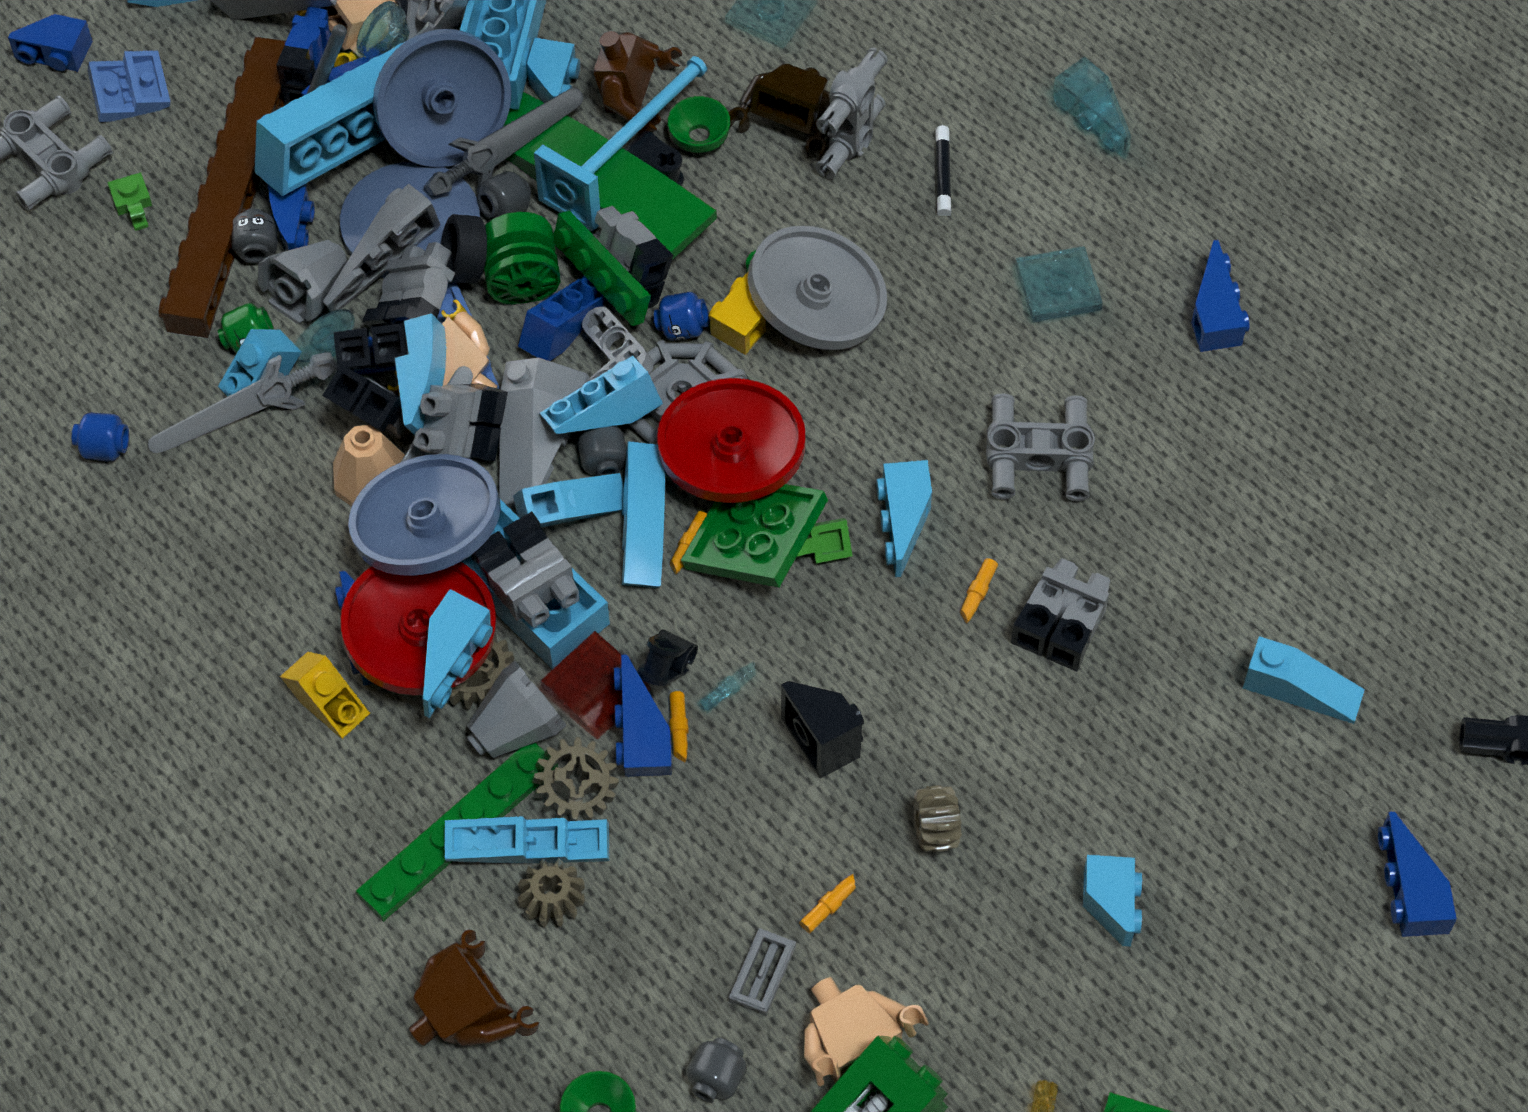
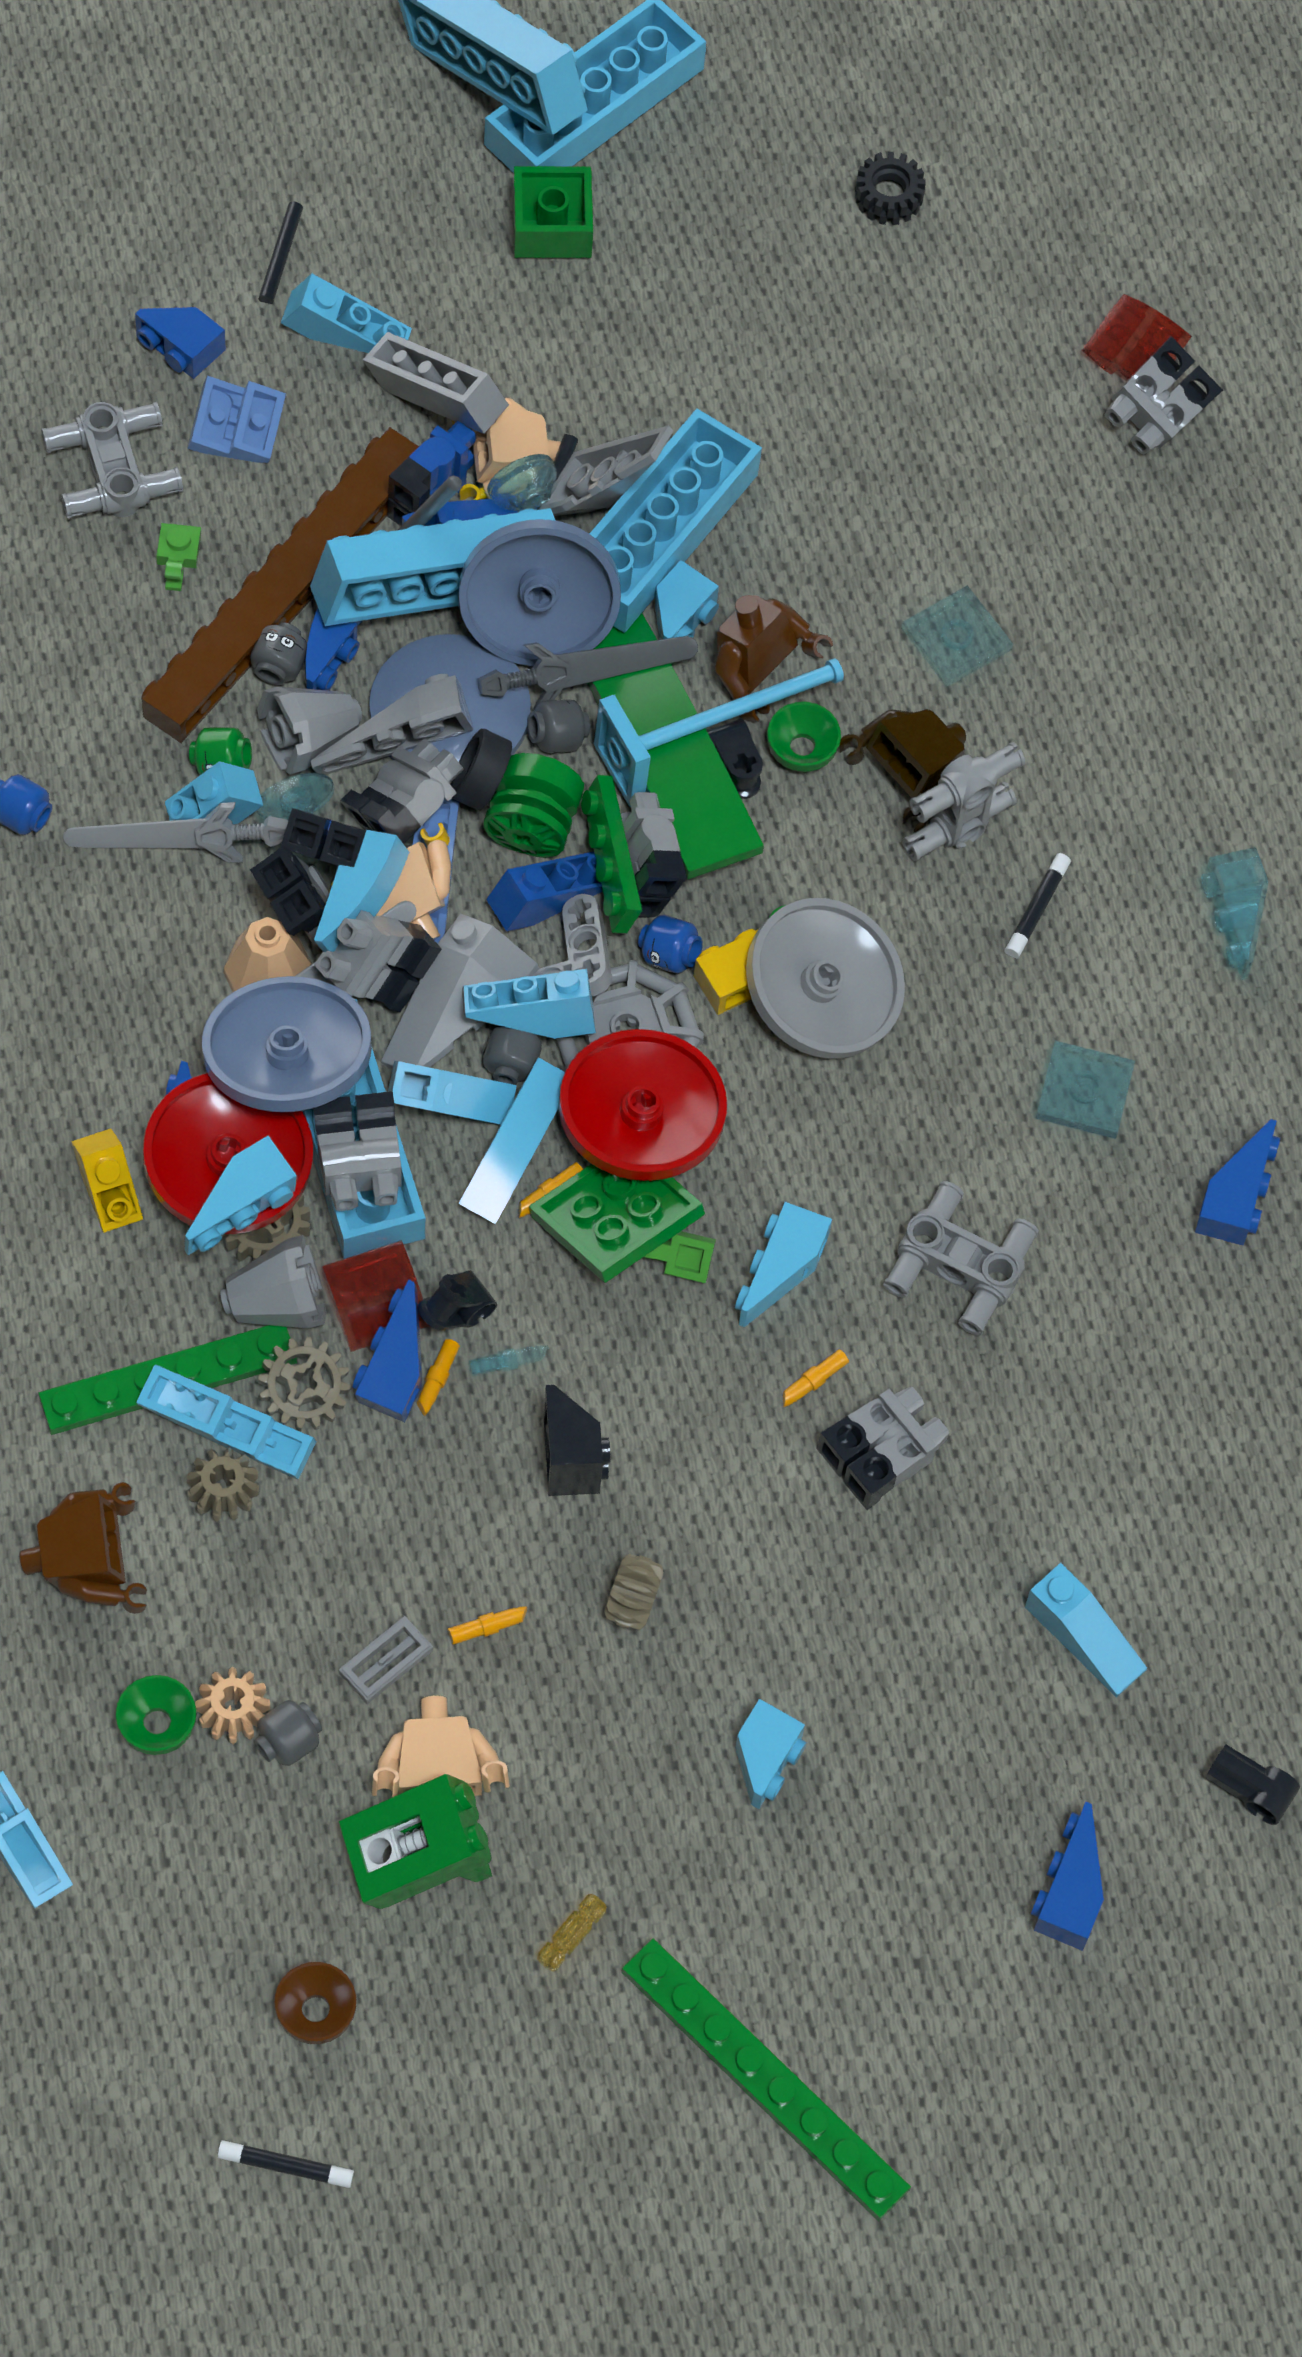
camera: 20 degrees right, 5 degrees up
(652, 1055) = (232, 1688): none -> light nougat gear

